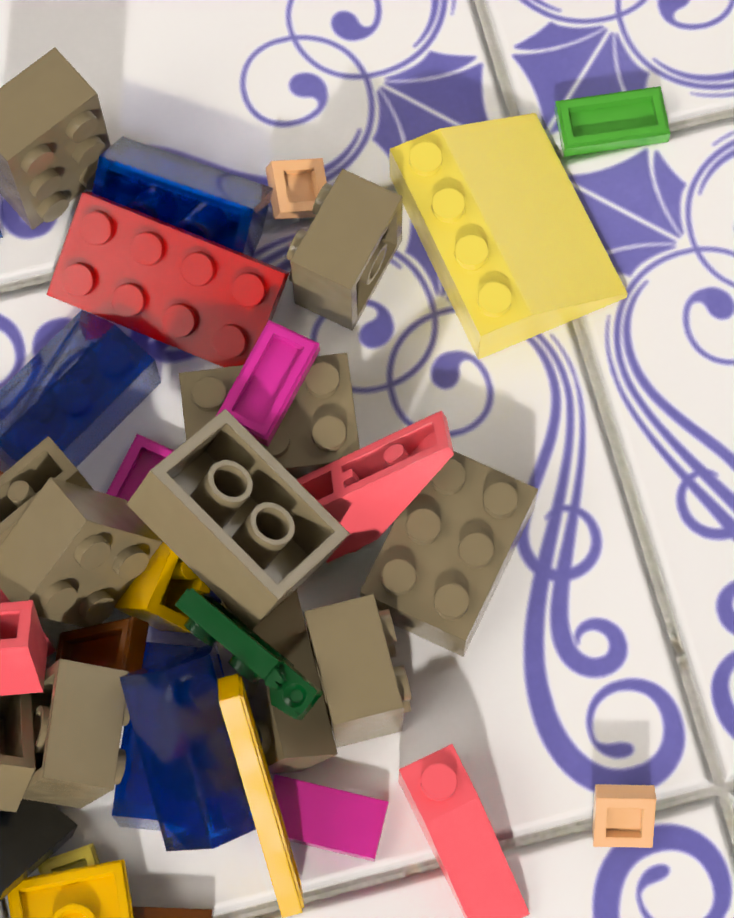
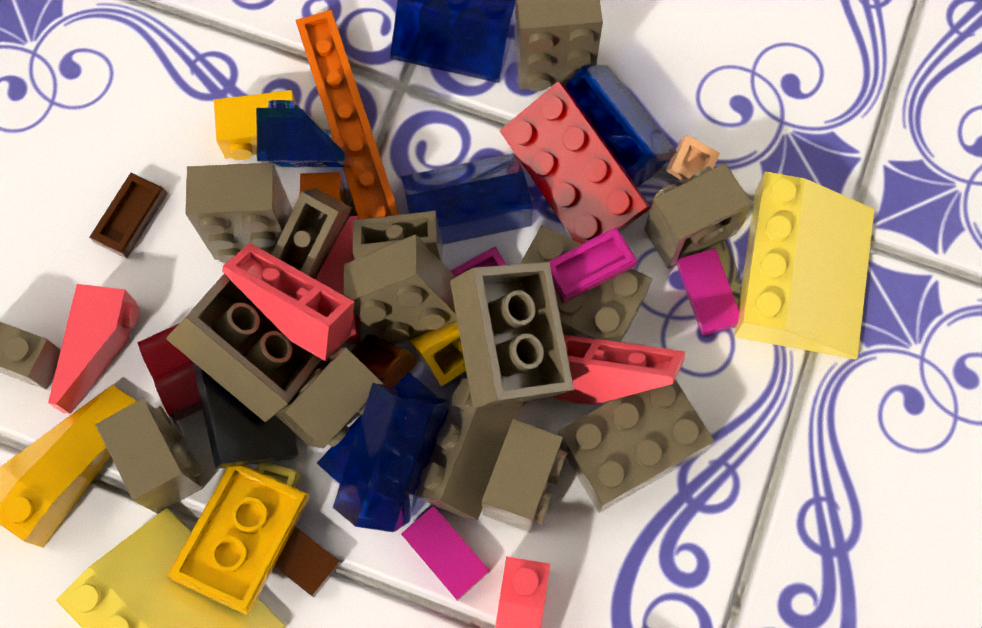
camera: 35 degrees right, 0 degrees up
(251, 654) = (462, 424): dark green hinge -> none
(260, 794) = (410, 512): yellow tile -> none
(416, 327) = (708, 292): none -> dark pink tile
(612, 121) = (921, 244): bright green tile -> none

